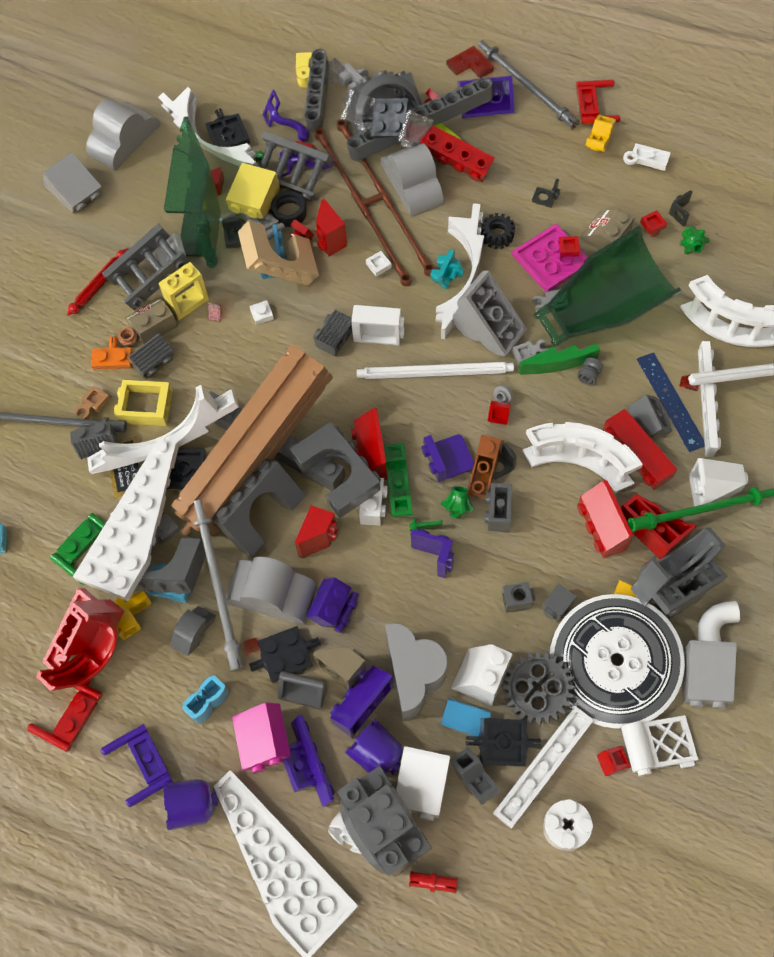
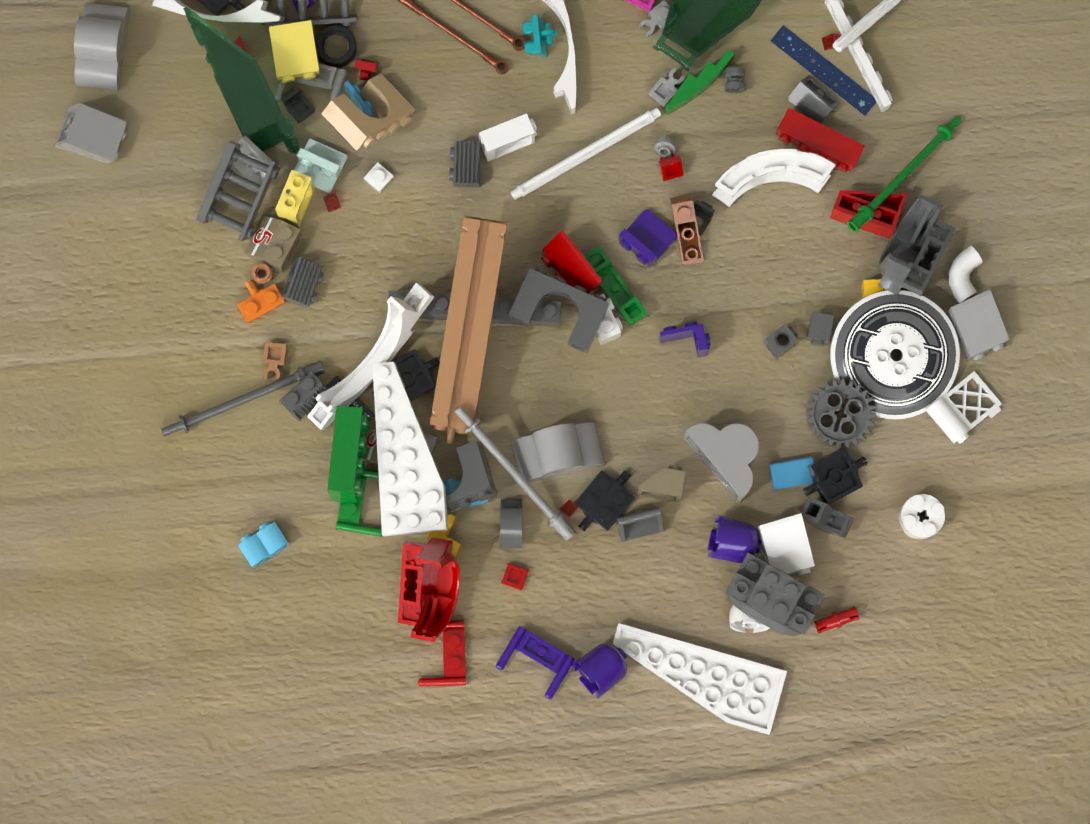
camera: 35 degrees left, 15 degrees up
(91, 498) = (347, 454): none -> green brick
(94, 285) = (191, 228): red wheel -> none
(159, 418) = (334, 350): light yellow window -> none
(168, 679) = (515, 576): none -> red tile
(210, 695) = (561, 582): medium azure brick -> none
(222, 281) = (321, 164): none -> light aqua bracket
(234, 516) = (492, 402): dark grey arch -> none
(261, 737) = (630, 582): brick -> none
(304, 764) = (677, 583): dark purple bracket -> none
(316, 532) = (571, 374): red slope -> none
(329, 603) = (622, 434): dark purple brick -> none
(330, 230) = (398, 53): red slope -> none
(361, 700) = (696, 505): dark purple slope -> none
(378, 263) = (465, 64): white plate -> none
(427, 525) = (653, 321): green piece -> none
(457, 502) = (682, 279): green rock -> none
(482, 673) = (787, 427): white slope -> none
(488, 316) = (612, 74): light grey brick -> none
(499, 507) = (722, 265): dark grey brick -> none
(543, 767) = (878, 478): white plate -> none
(605, 520) = (822, 228): slope -> none
(613, 760) = (932, 441): red slope -> none
(716, 480) = (903, 138): white slope -> none

